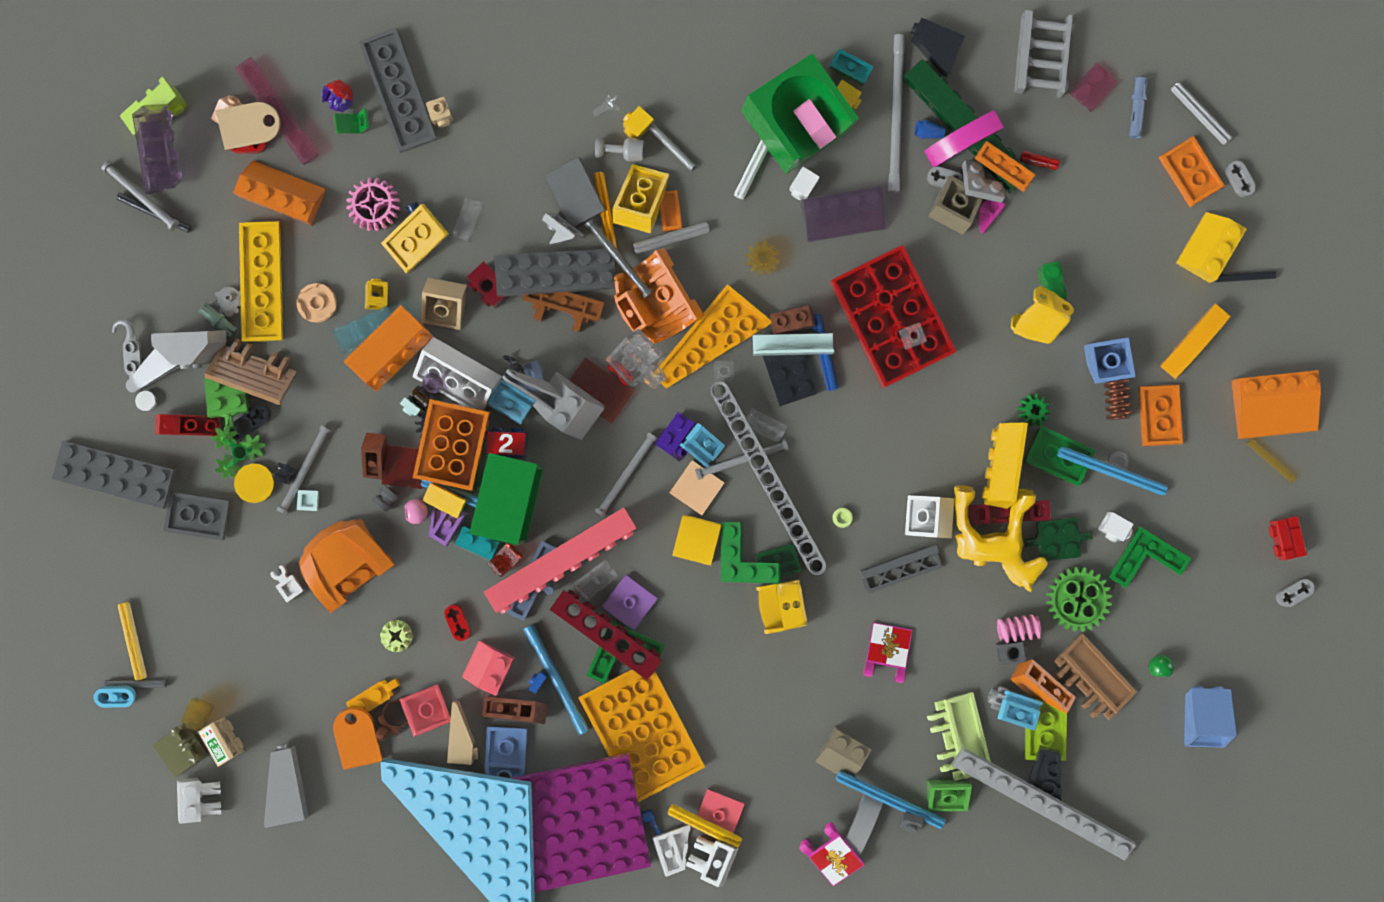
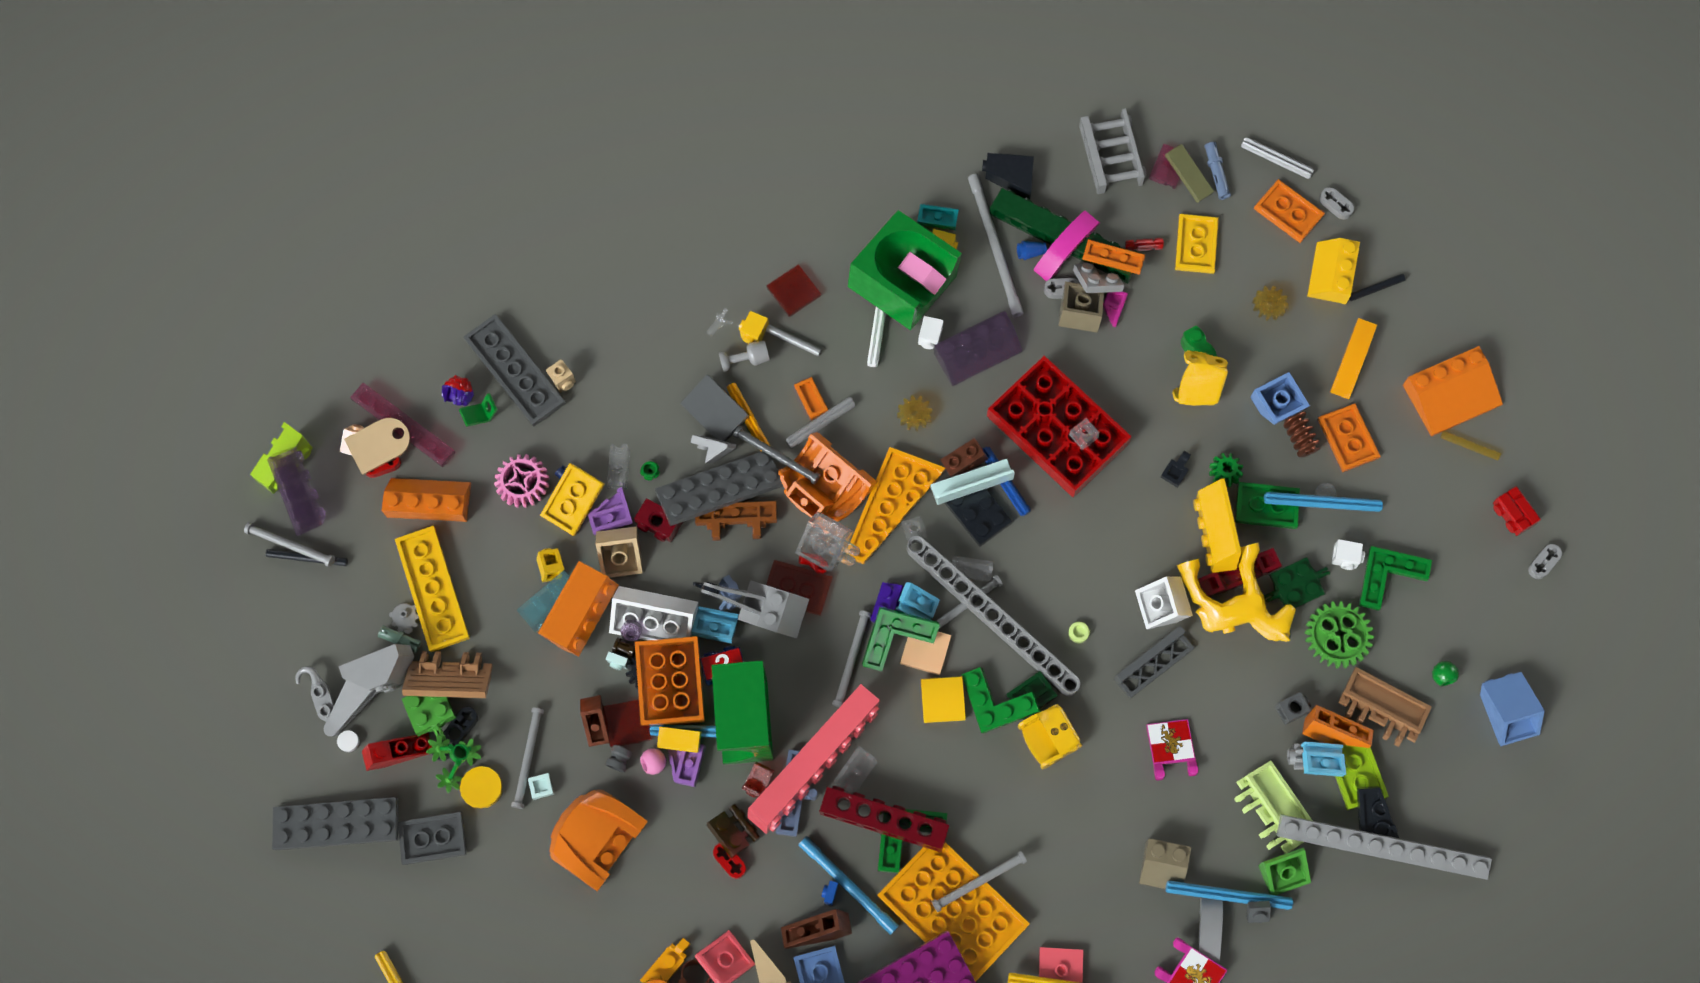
camera: 10 degrees left, 15 degrees down
(284, 473) = (508, 766): black wheel -> none
(289, 586) = (545, 879): white plate -> none
(317, 303) = (493, 592): light nougat tile -> none
(395, 626) = (674, 904): yellowish green gear -> none
(448, 264) = (611, 513): none -> medium lavender wing
(463, 600) = (728, 834): none -> dark brown plate
(479, 545) = (724, 774): teal plate -> none
(488, 668) = (775, 895): coral slope -> none
(491, 233) = (646, 467): none -> green plate
(629, 602) = (896, 783): medium lavender plate -> none
(640, 198) = (779, 395): yellow slope -> none
(672, 456) = (896, 622): none -> green plate
(672, 716) = (938, 904): none -> light grey bar
(688, 96) = (793, 290): none -> clear red tile
(987, 395) = (1175, 471): none -> black plate
(1019, 628) = (1291, 680): bright pink piece -> none
(1090, 175) = (1196, 243): none -> yellow tile
(1109, 102) = (1189, 173): none -> olive tile
(1134, 252) = (1275, 308): none -> clear yellow gear

